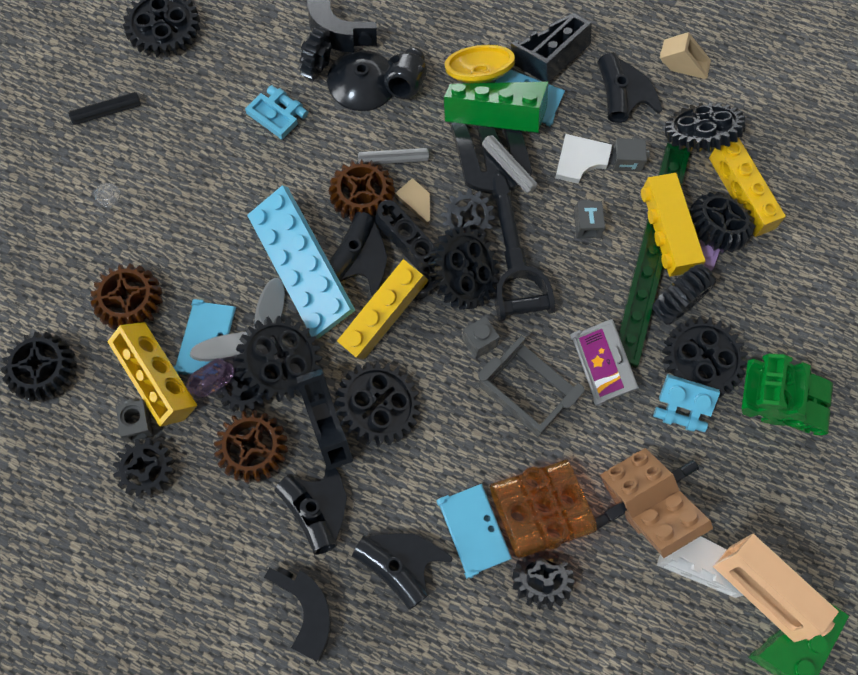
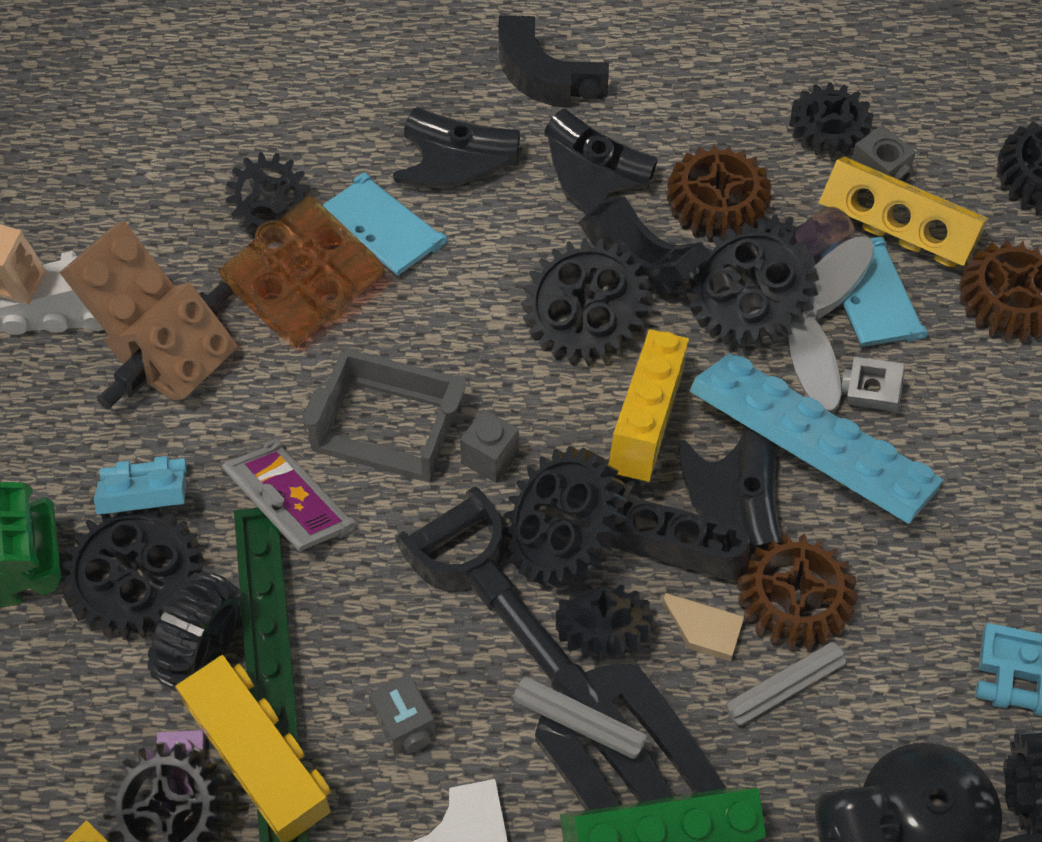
camera: 160 degrees right, 10 degrees down
(247, 276) = (884, 373): none -> light grey brick

